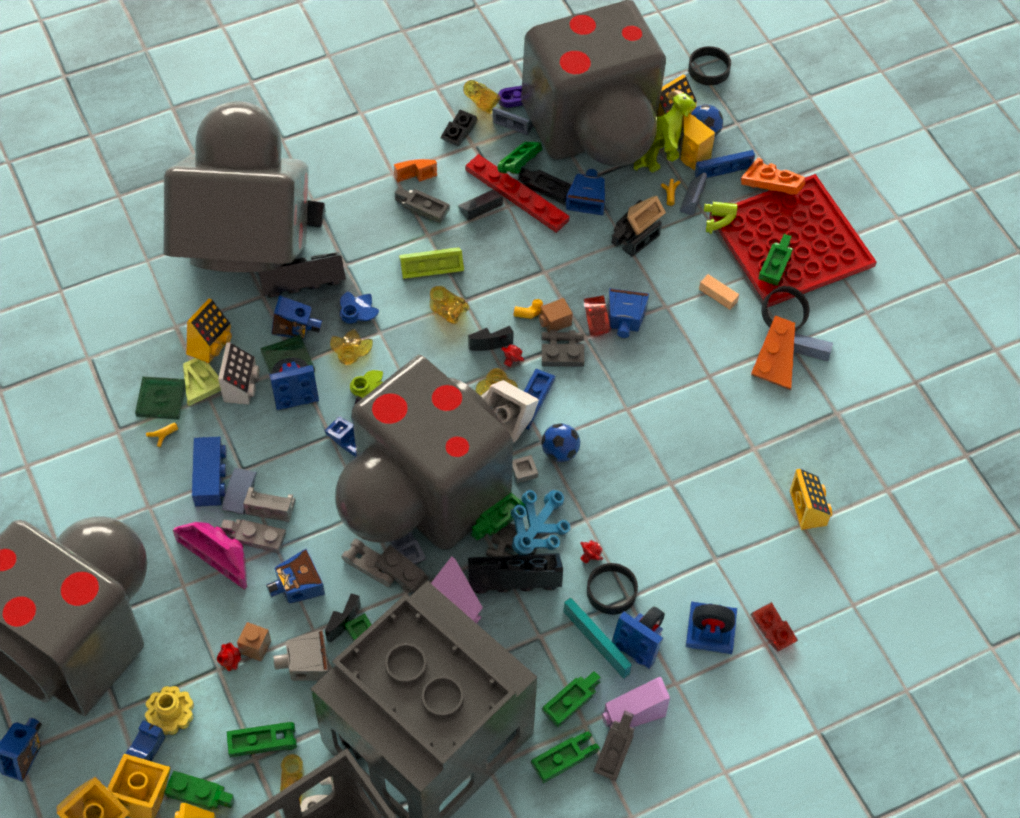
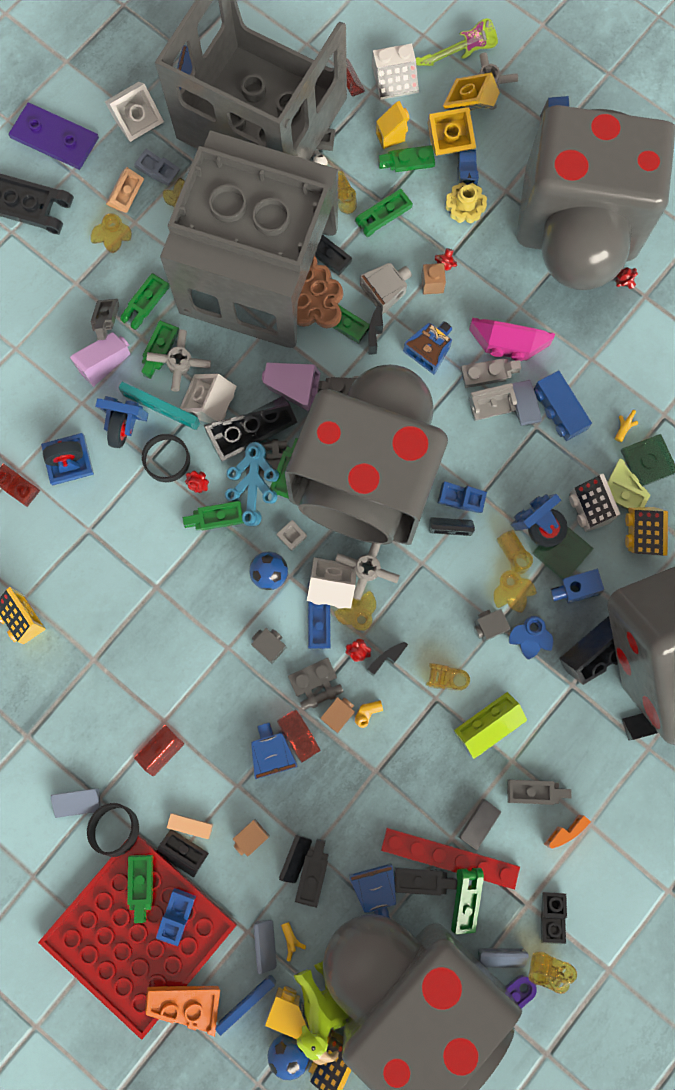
camera: 155 degrees right, 20 degrees up
(330, 371) = (514, 550): none -> clear yellow piece
(369, 381) = (467, 555): lime plate -> none
(386, 326) = (491, 625): none -> dark grey brick
(545, 624) = (208, 397): none -> white slope
(562, 674) = (178, 353): none -> light grey bar
(588, 514) = (215, 516): none -> green hinge
(589, 389) = (268, 644): none -> dark grey brick
(645, 214) = (303, 882): tan slope -> none
(671, 262) = (250, 838): none -> medium nougat brick
(721, 209) = (219, 931): lime plant -> none
(723, 356) = (159, 750): none -> clear red slope
(733, 277) = (182, 853): none -> black slope
(756, 233) = (176, 917): none -> blue slope
(776, 354) = (103, 770): orange wing -> none

